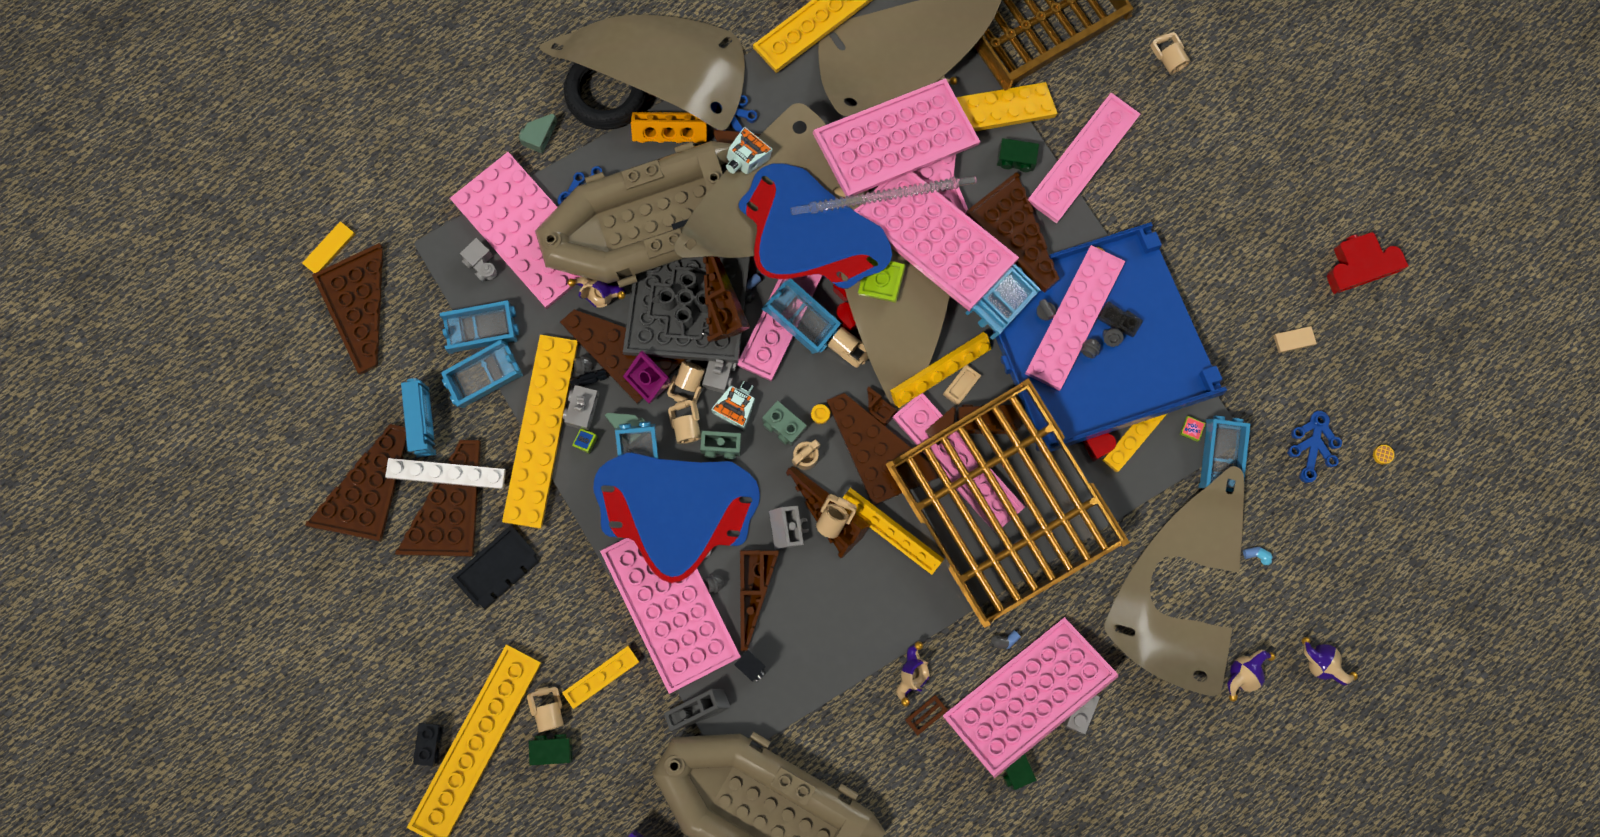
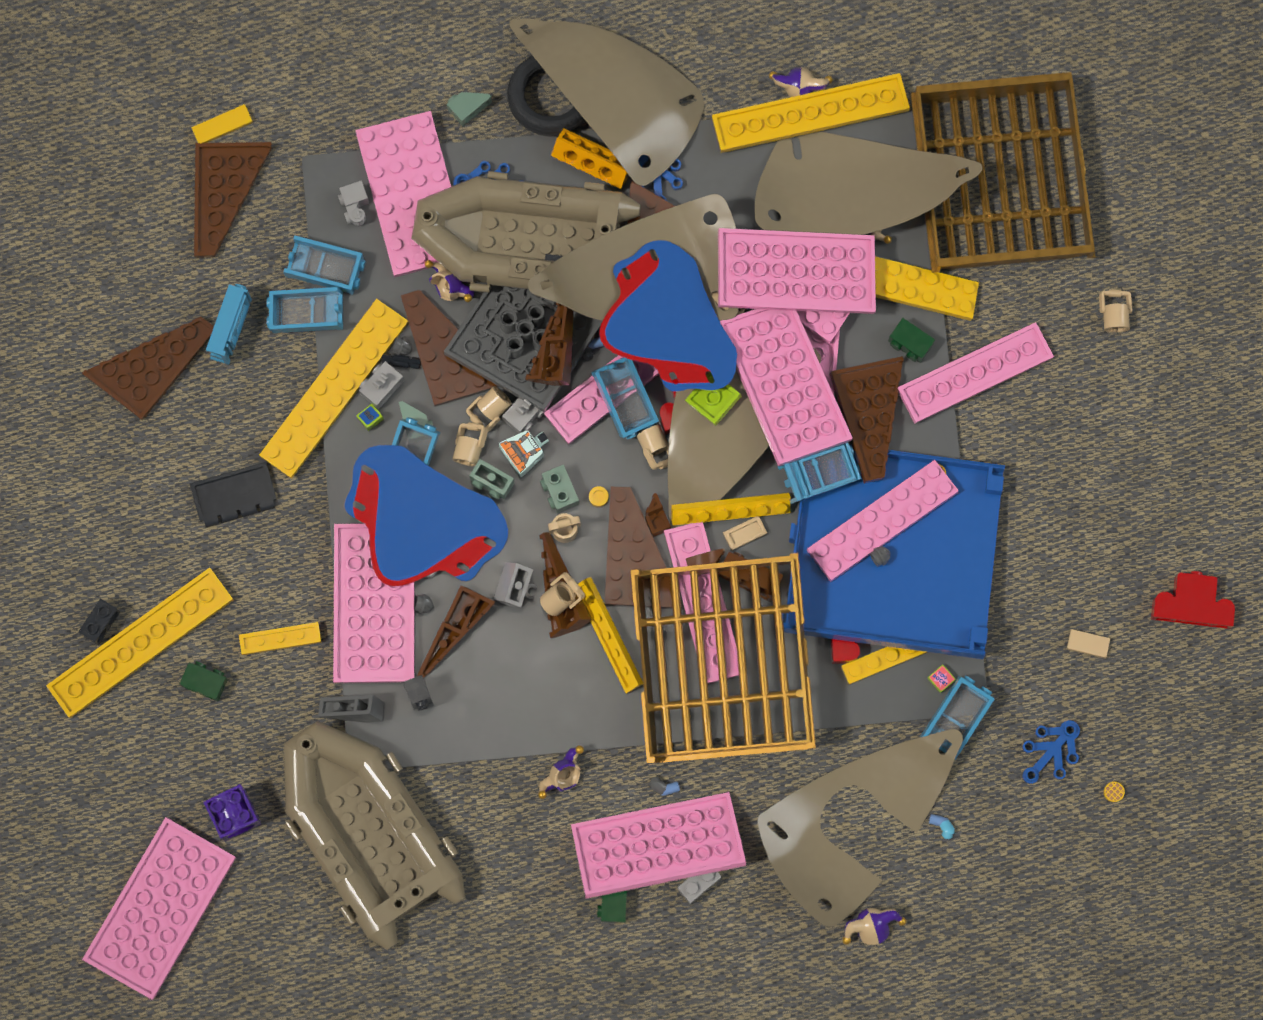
camera: 30 degrees right, 0 degrees up
(445, 473) = (229, 386): white plate -> none
(448, 516) = (215, 424): reddish brown wing -> none
(549, 715) = (215, 648): tan piece -> none
(646, 377) = (453, 386): magenta slope -> none
(747, 153) = (647, 220): torso -> none
(932, 720) = (557, 825): reddish brown tile -> none
(952, 183) = (682, 301): clear hose -> none
(1045, 310) = (857, 501): dark grey plate -> none
(1112, 337) = (907, 556): dark grey plate -> none
(1118, 319) = (923, 543): clear smoke slope -> none
(1326, 663) = (951, 952): piece -> none

